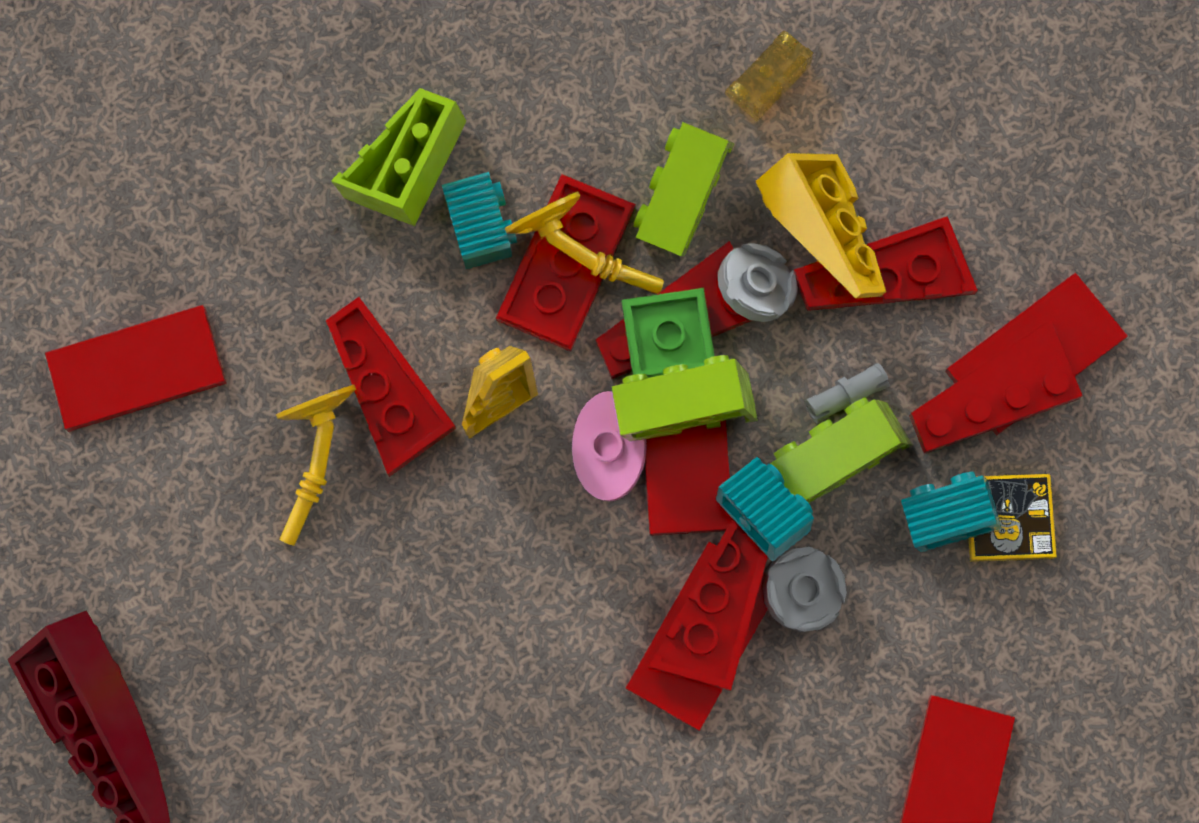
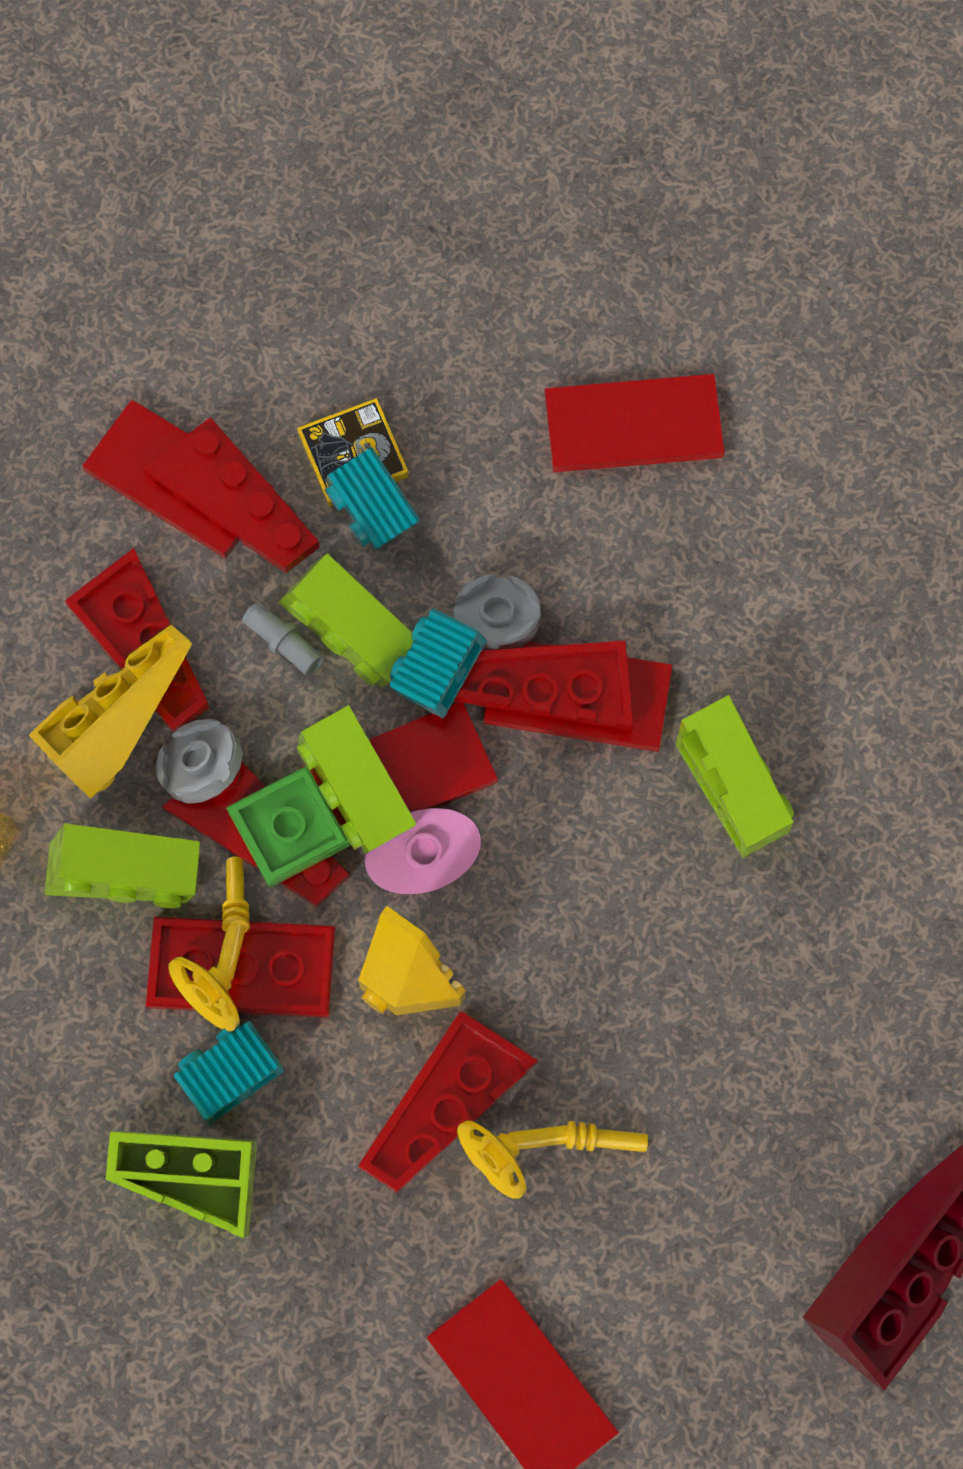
camera: 115 degrees left, 5 degrees down
(566, 742) = (734, 776): none -> lime wedge

